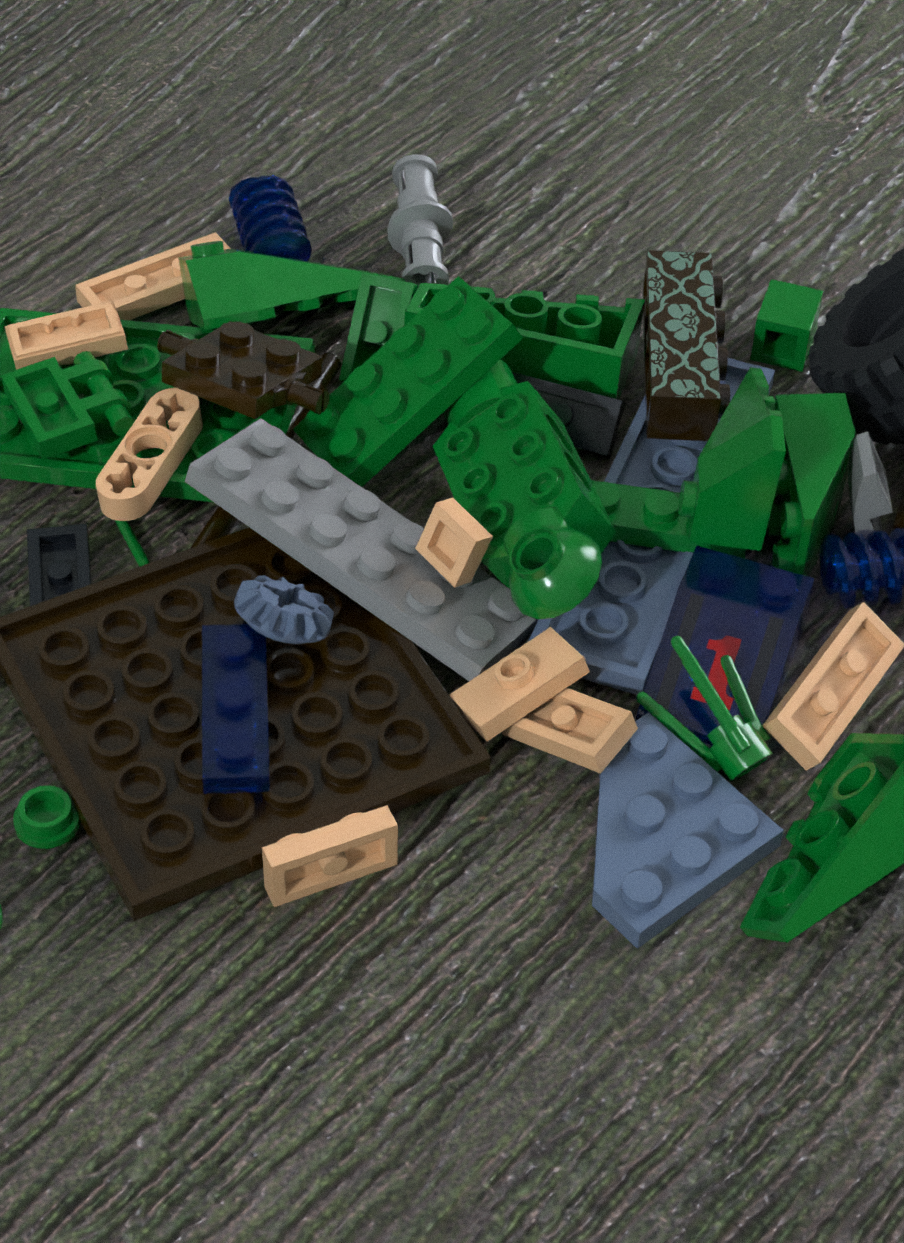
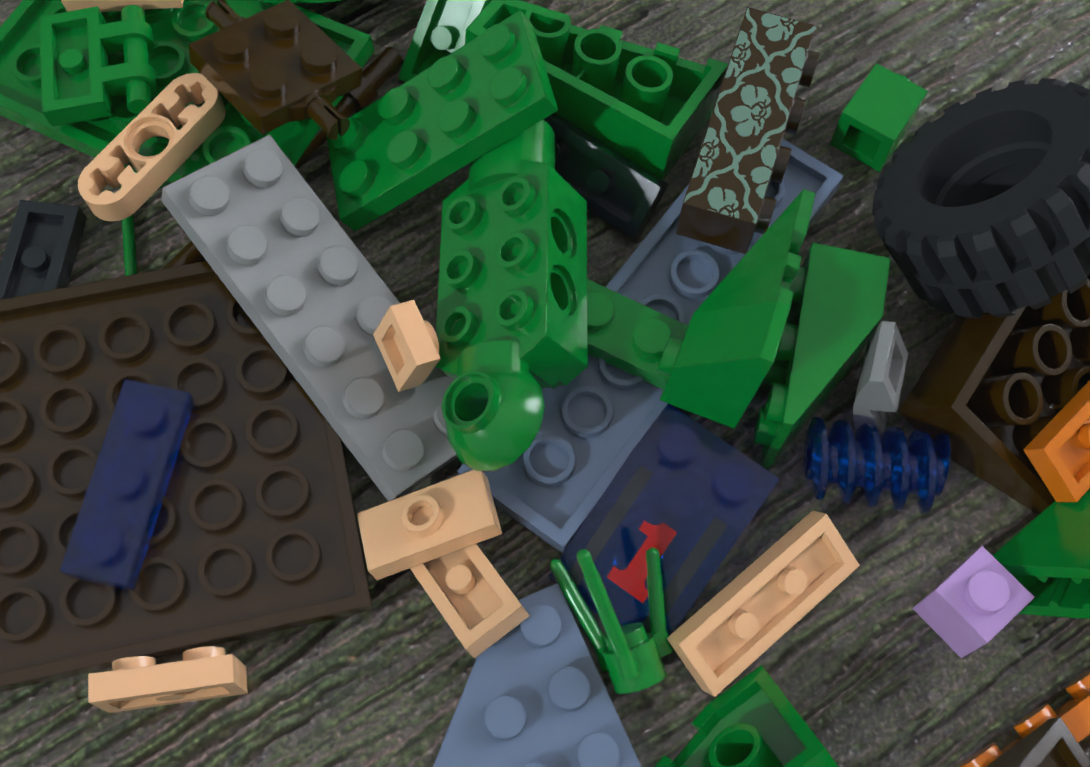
camera: 15 degrees right, 20 degrees up
(283, 610) = (214, 406): sand blue gear -> none

